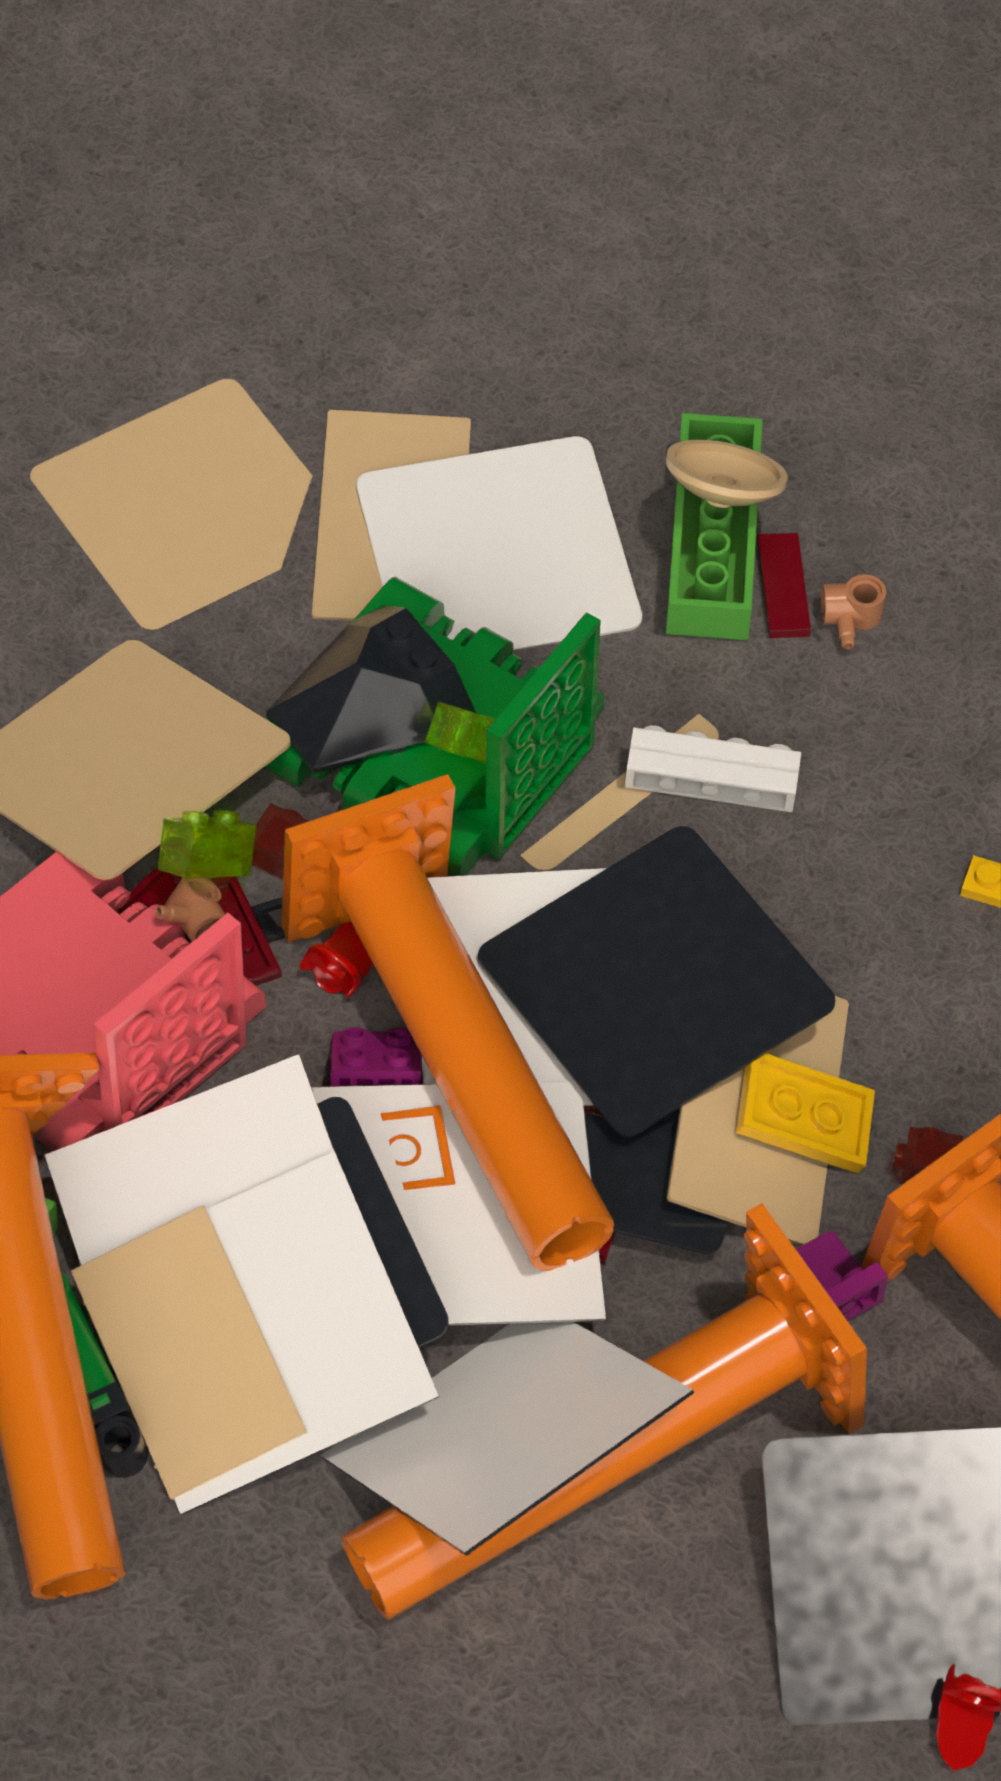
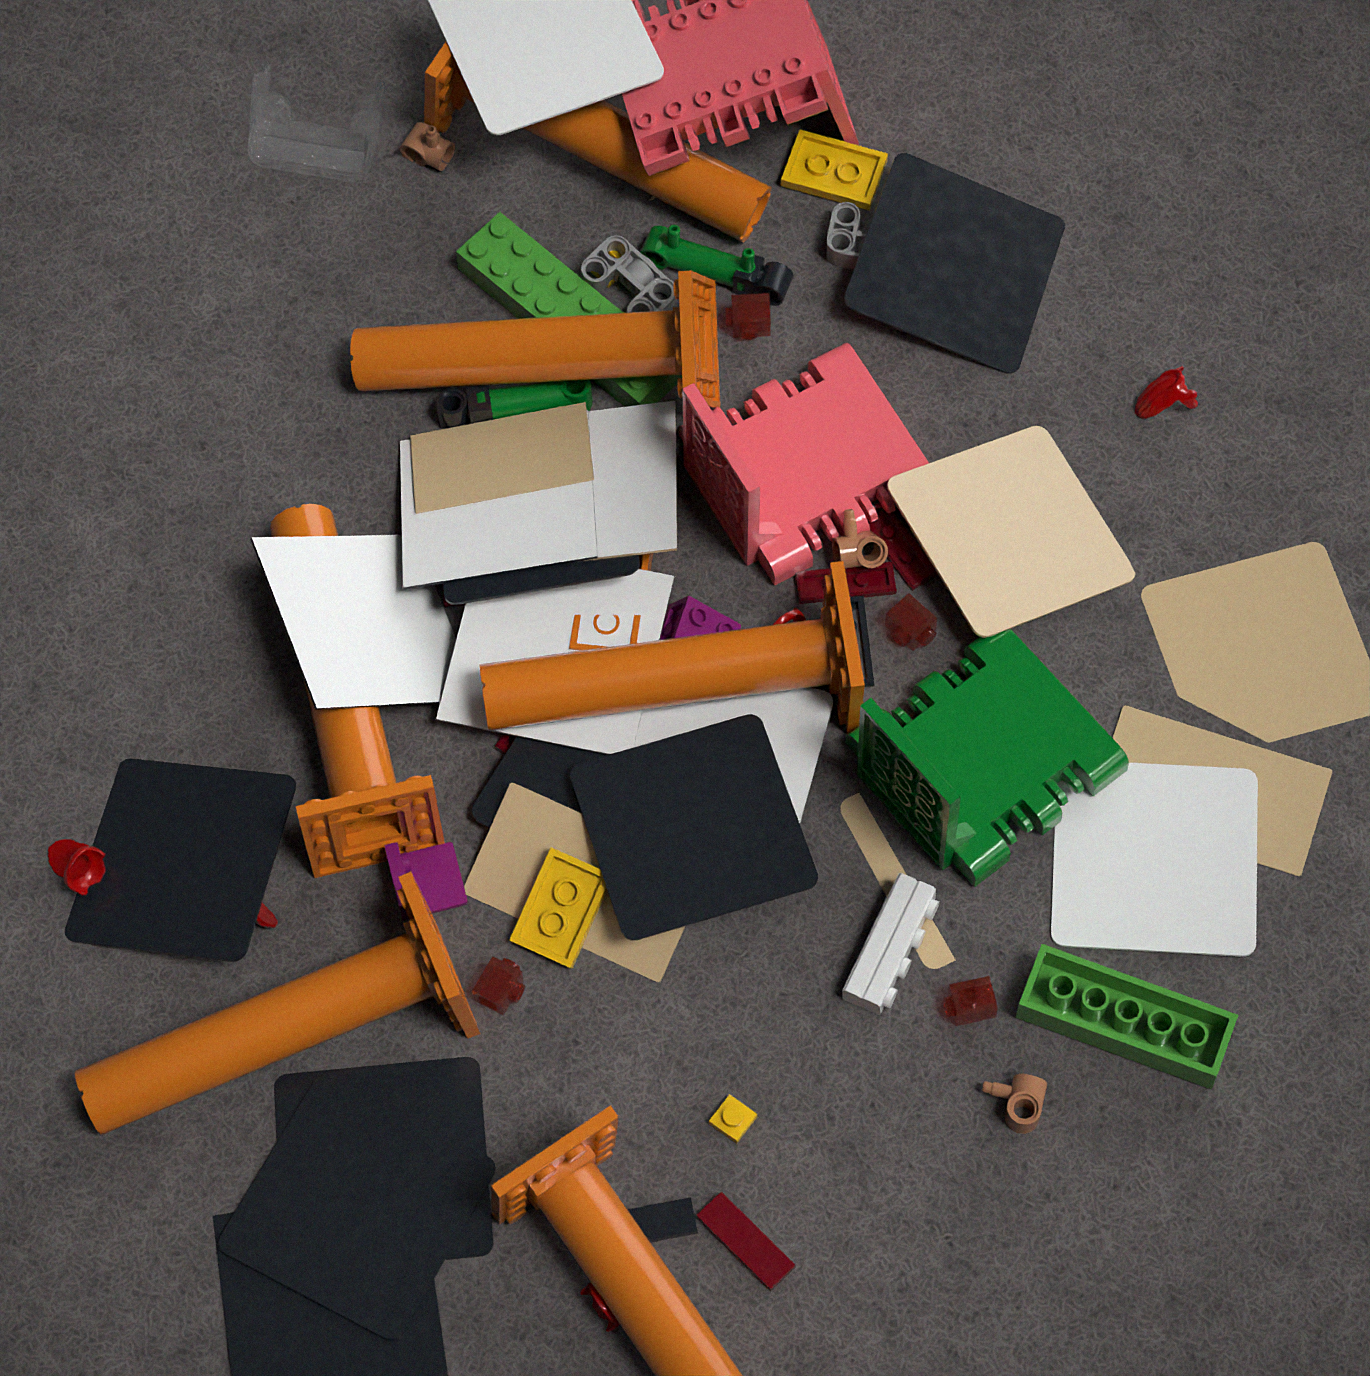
camera: 110 degrees right, 10 degrees up
(207, 845) = (901, 559): clear neon green brick -> none
(368, 692) = (1009, 701): black wedge -> none
(459, 732) = (942, 743): clear neon green brick -> none
(725, 472) = (1163, 1014): tan dish -> none
(751, 676) = (971, 1001): none -> clear red brick
(783, 585) = (1063, 1062): dark red tile -> none

